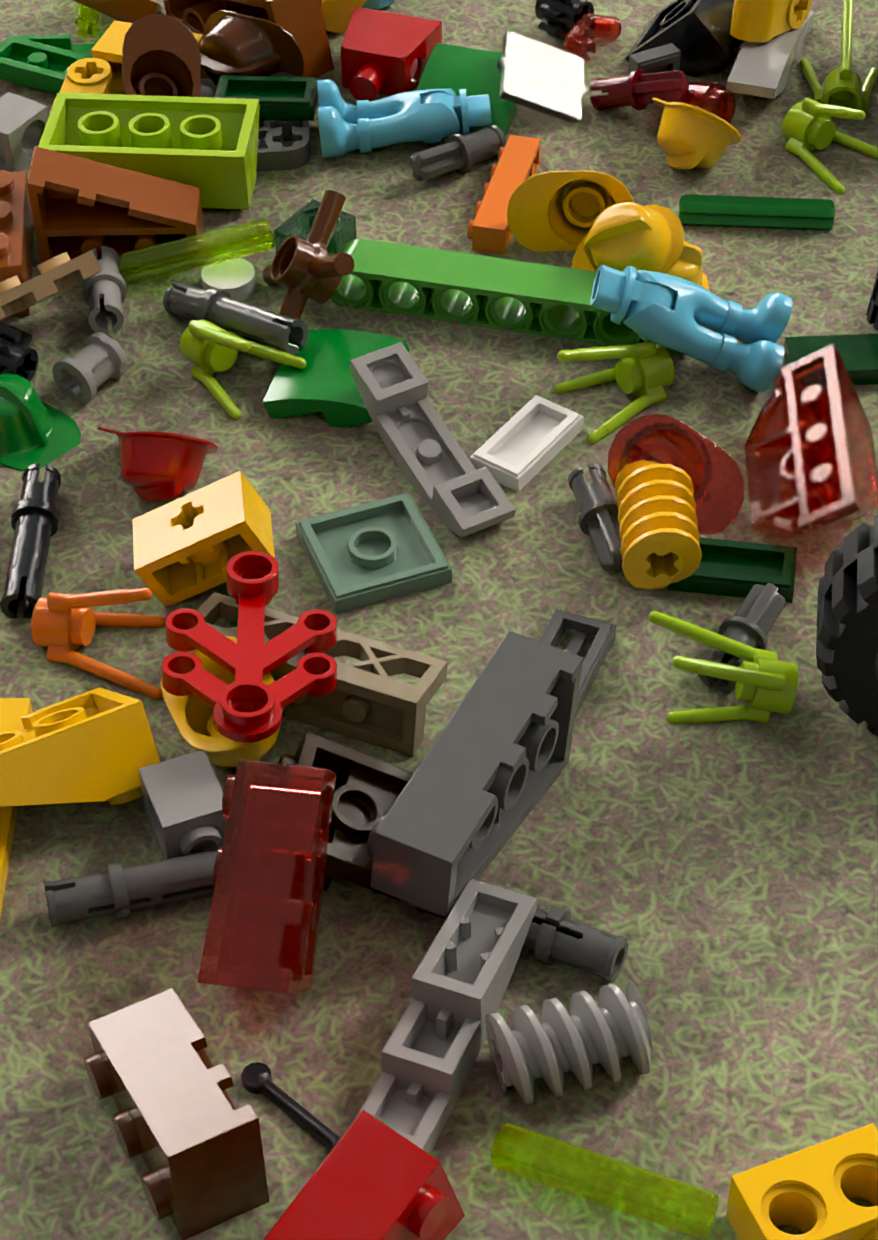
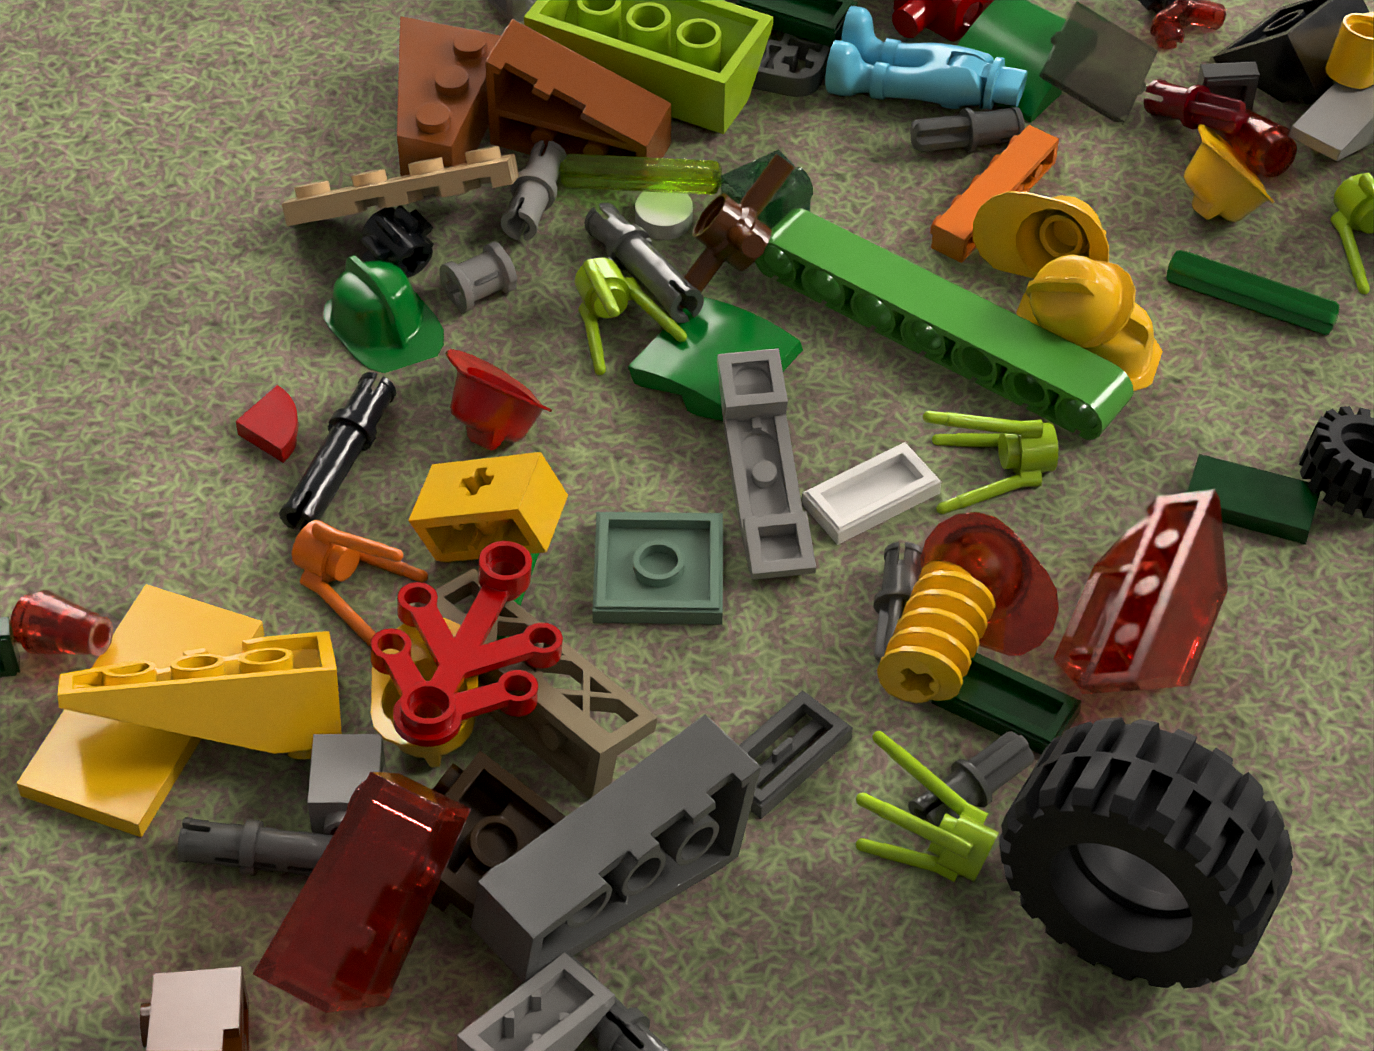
camera: 20 degrees right, 5 degrees up
(698, 321) = (1064, 391): medium azure piece -> none

